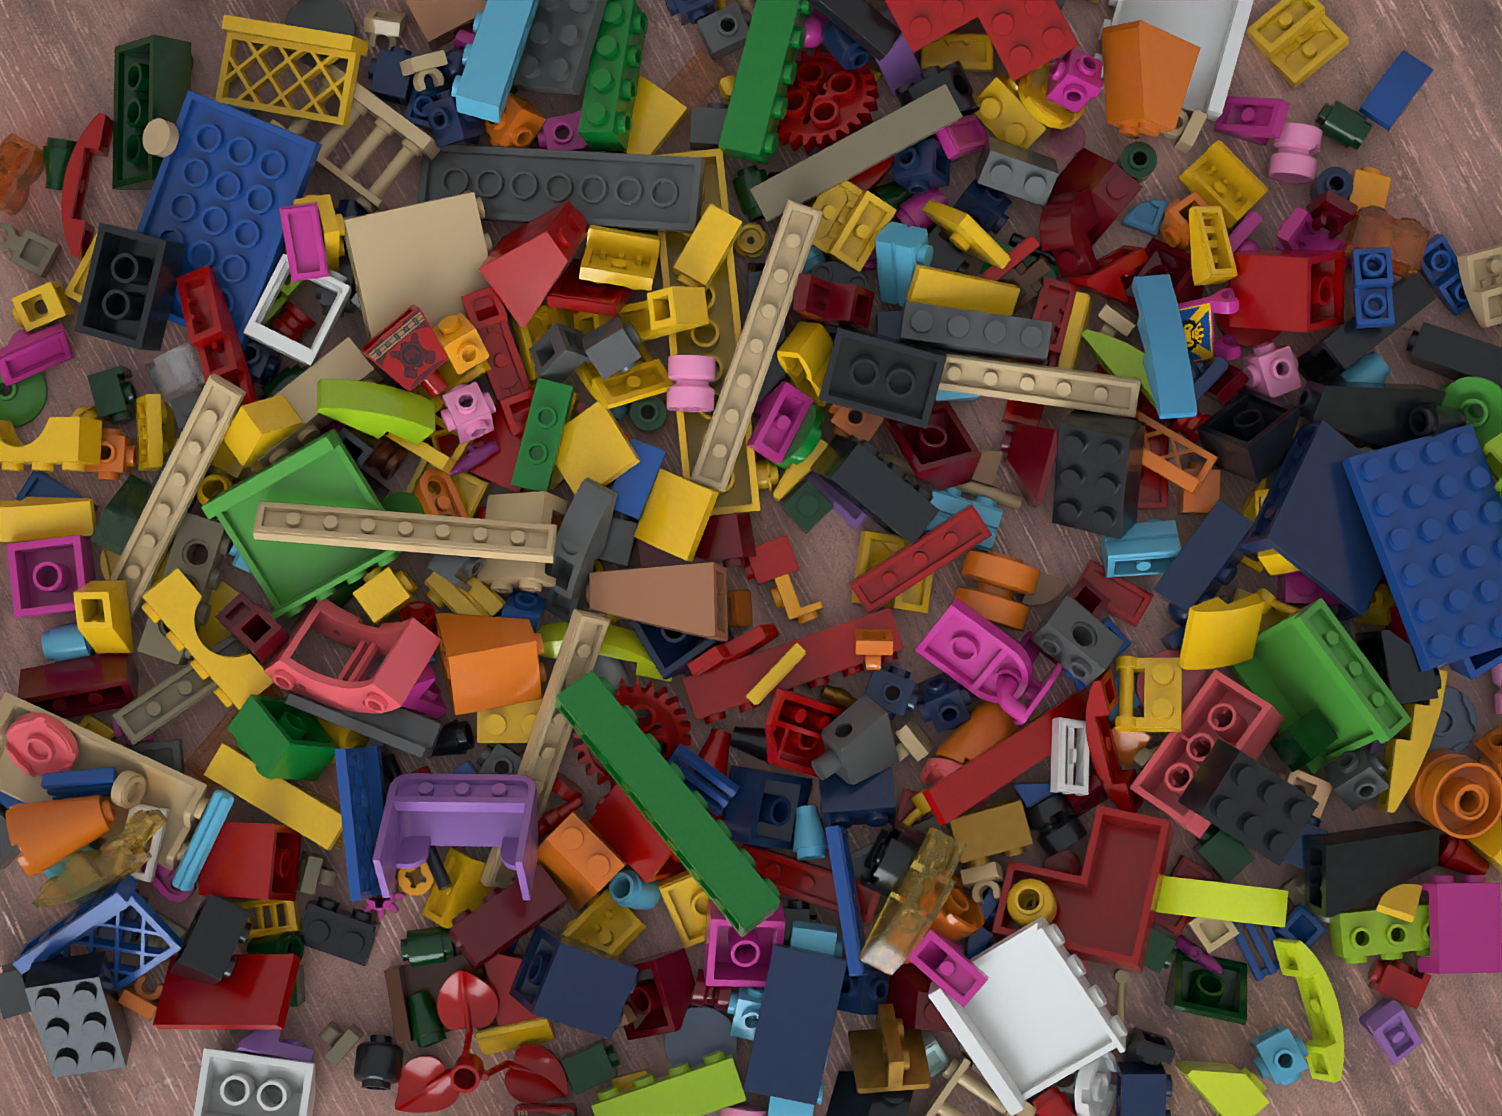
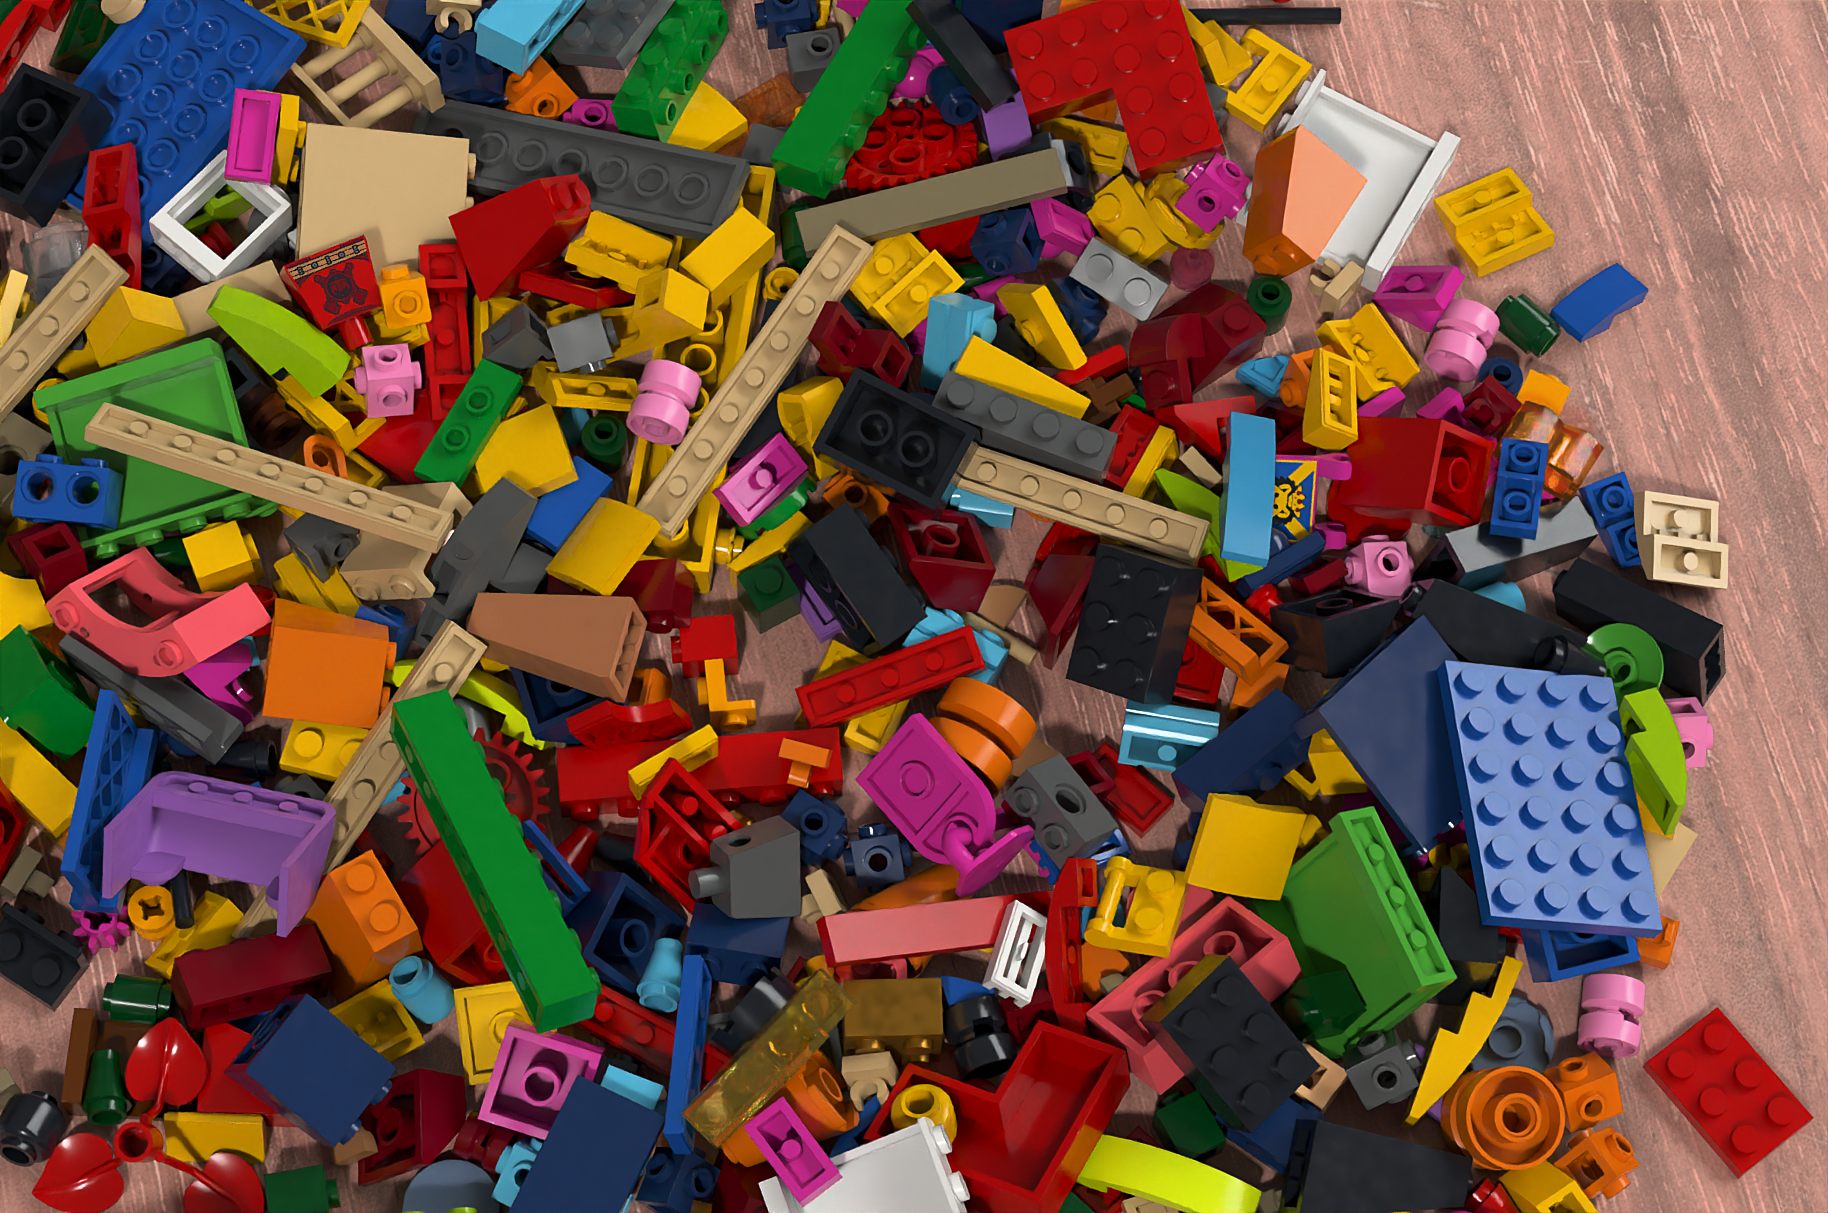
camera: 10 degrees right, 20 degrees down
(255, 585) = (67, 499): none -> blue brick
(474, 457) = (378, 438): magenta helmet -> none

